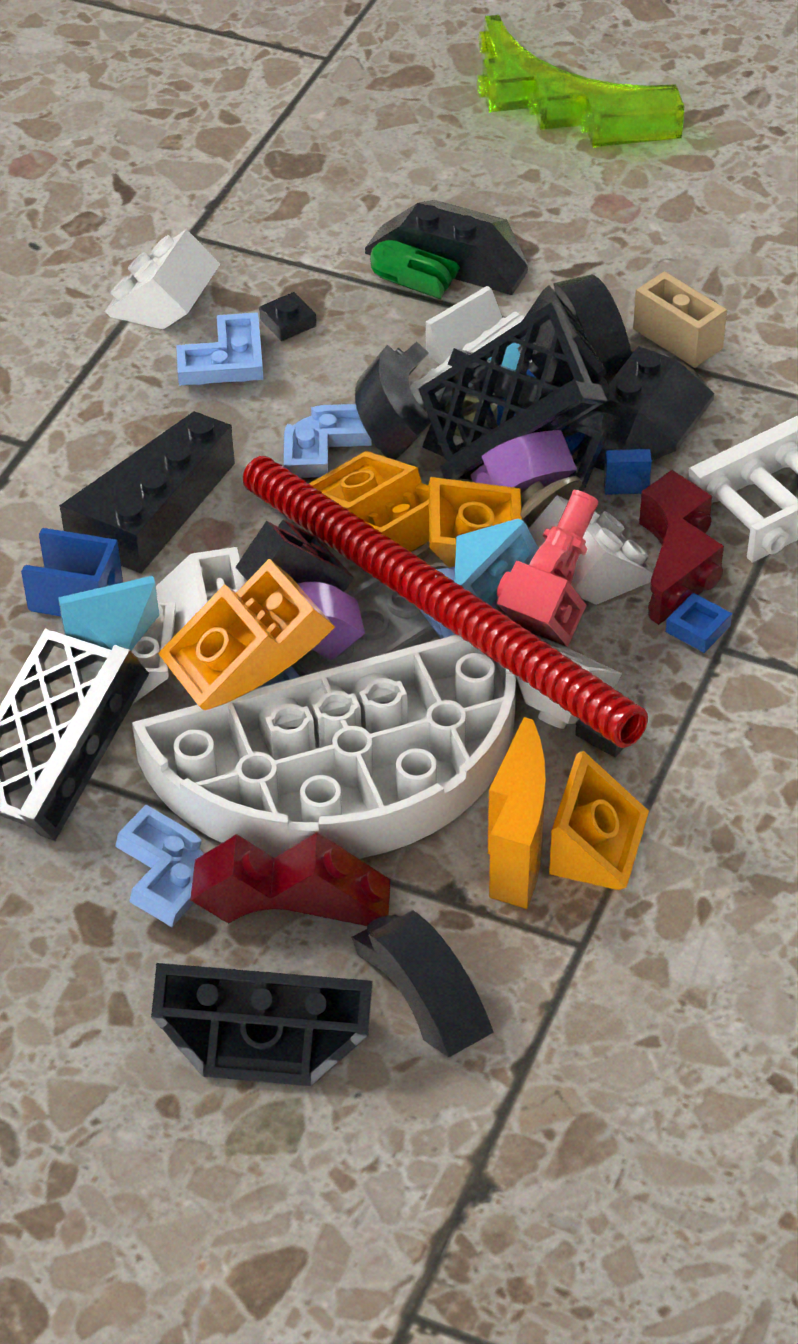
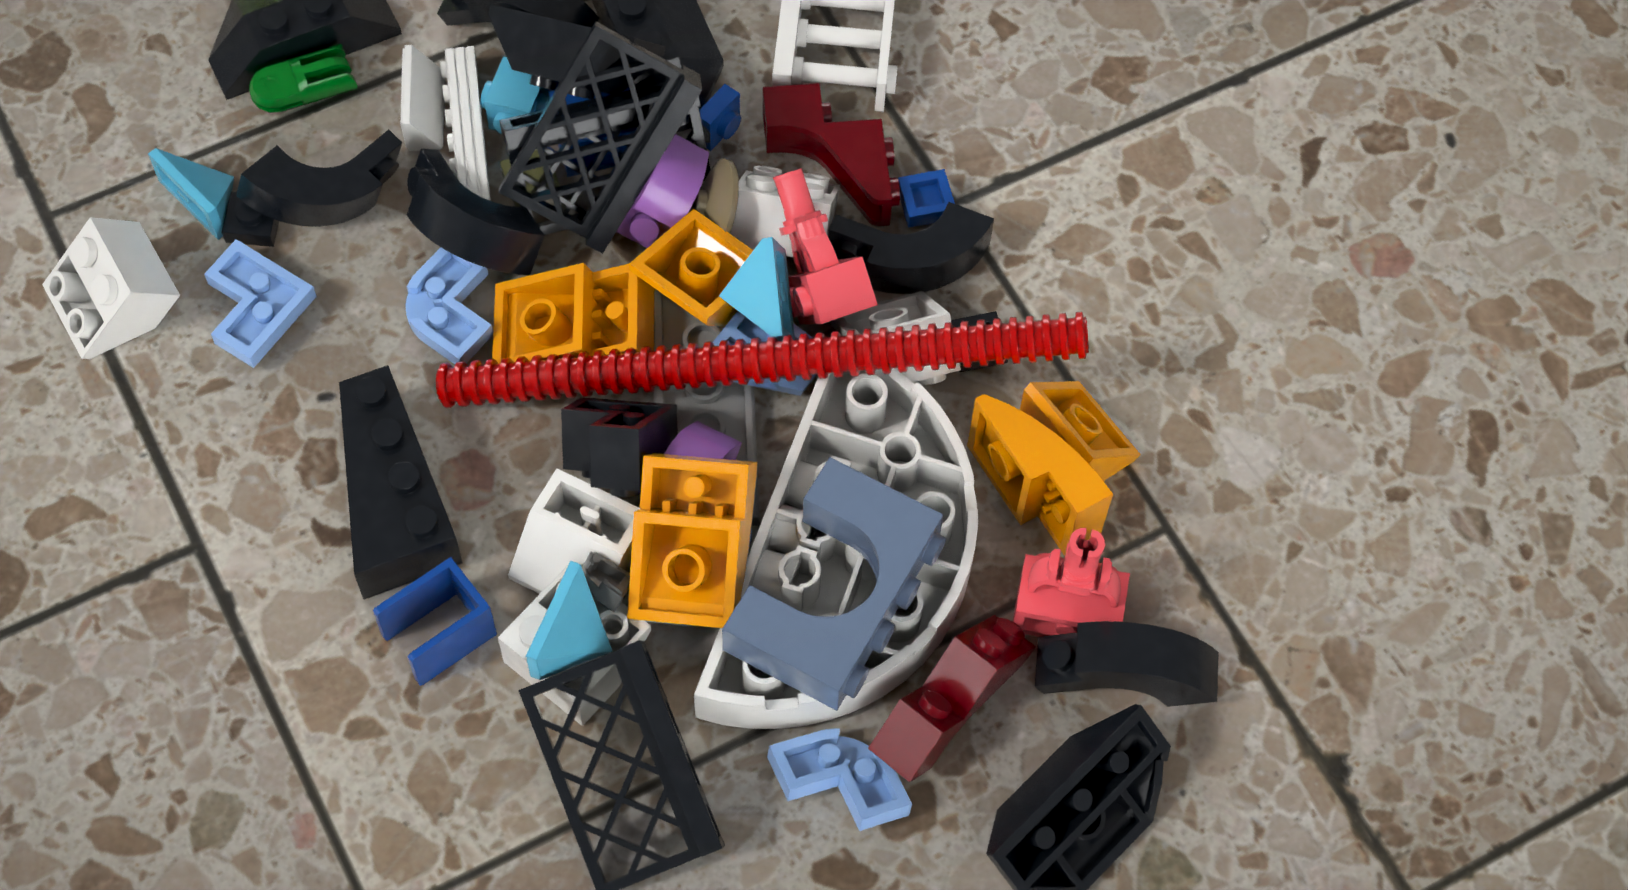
camera: 55 degrees left, 15 degrees up
(170, 621) = (606, 580): none -> dark grey tile
(235, 768) = (829, 653): none -> sand blue arch
(278, 273) = (196, 187): none -> medium azure slope
(336, 327) = (318, 195): none -> black arch
(443, 893) = (1069, 590): none -> coral brick
(645, 652) = (916, 259): none -> black arch

